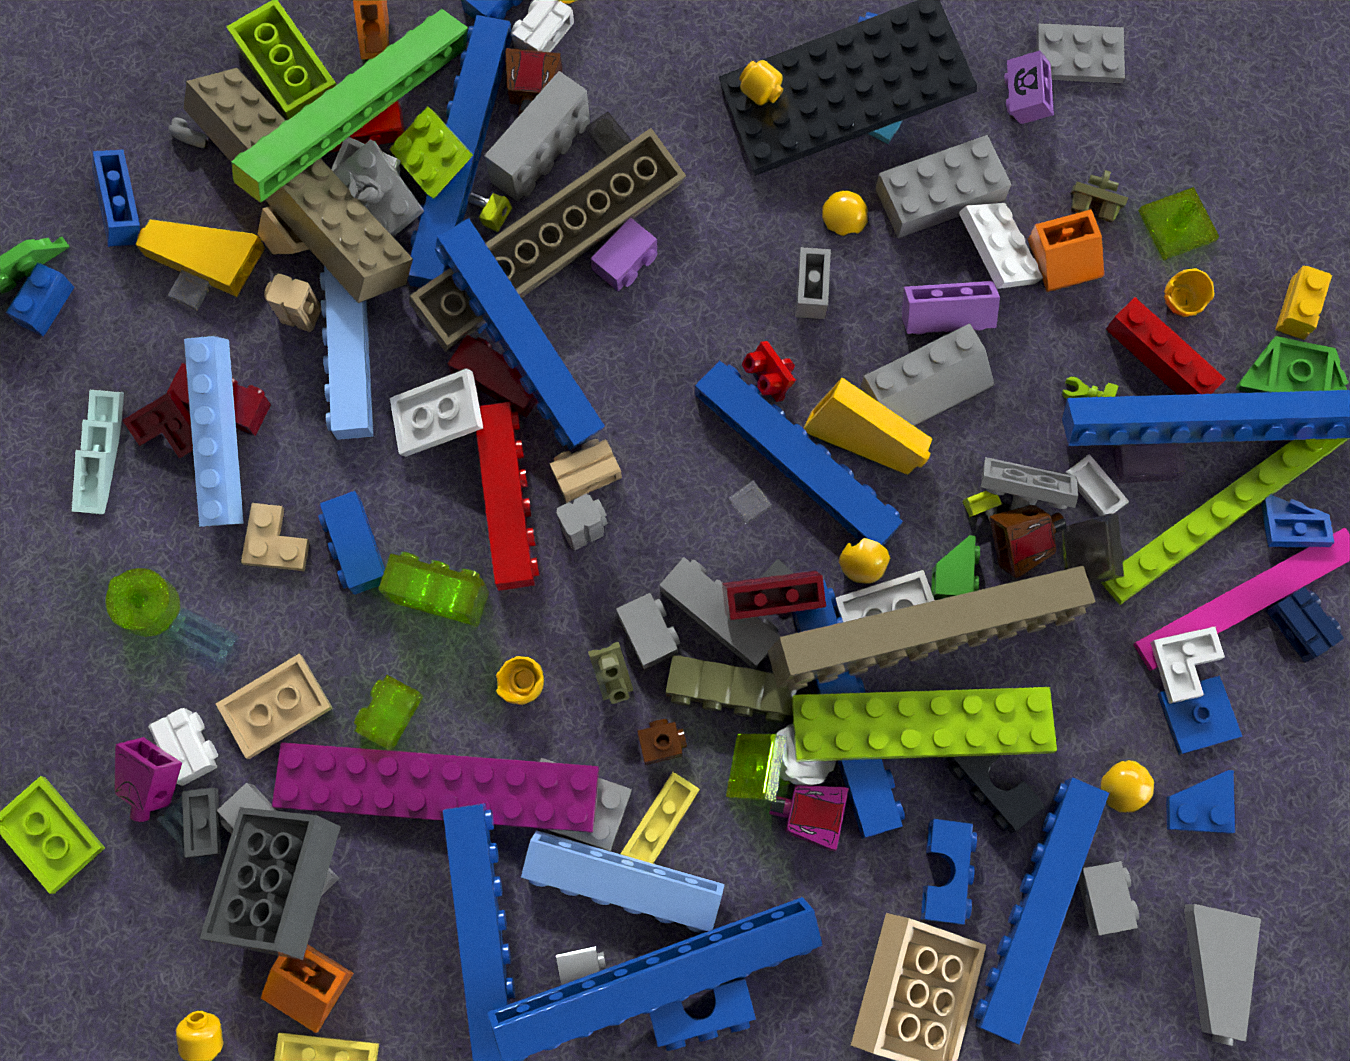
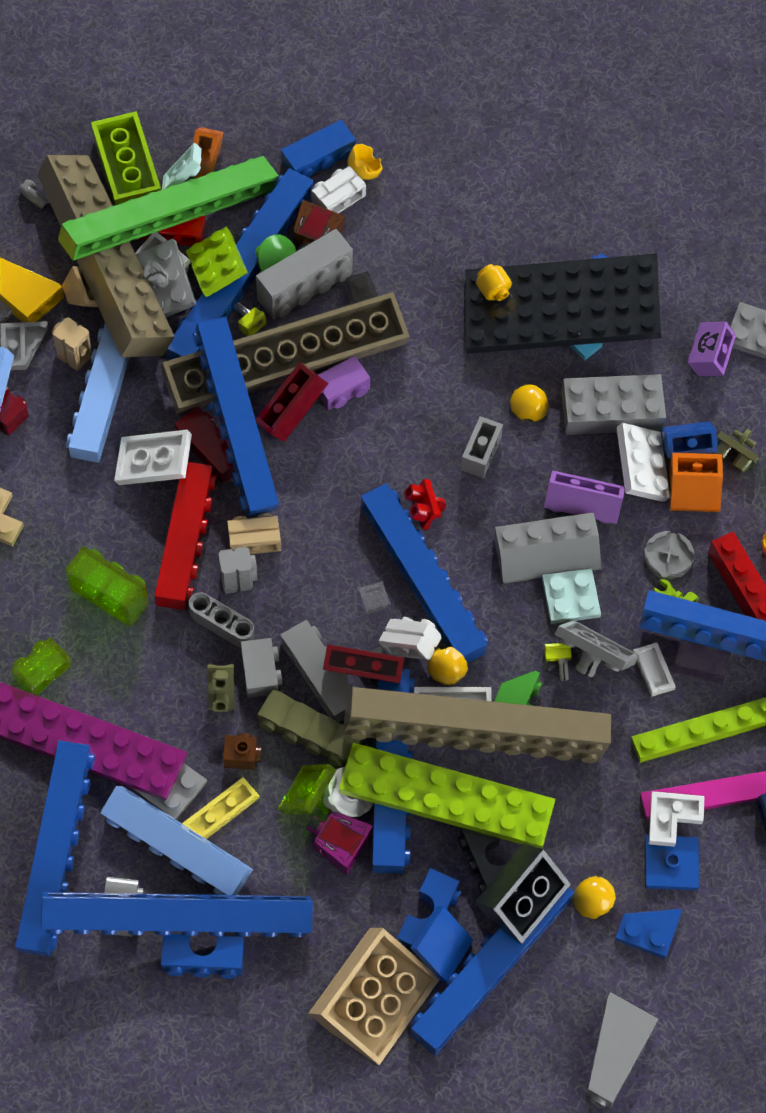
camera: 15 degrees right, 10 degrees down
(233, 316) = (22, 341): none -> light grey wing
(352, 542) = (56, 534): blue brick -> none
(355, 49) = (186, 166): none -> light aqua plate
(493, 120) = (273, 250): none -> bright green dish
(527, 675) = (153, 669): yellow hair -> none
(571, 576) = (216, 610): none -> light grey beam
(576, 296) = (291, 402): none -> dark red brick
(812, 541) = (410, 638): none -> white brick
(868, 429) = (485, 568): yellow slope -> none
(972, 429) = (571, 596): none -> light aqua plate
(979, 908) = (442, 944): none -> blue tile
(1025, 537) = (580, 685): reddish brown torso -> none
(1044, 201) = (689, 438): none -> blue brick
(1055, 817) = (523, 892): none -> black slope
(1064, 345) = (669, 555): none -> light grey tile
(1096, 547) = (630, 711): clear smoke tile -> none
(1108, 899) = (545, 971): light grey brick -> none

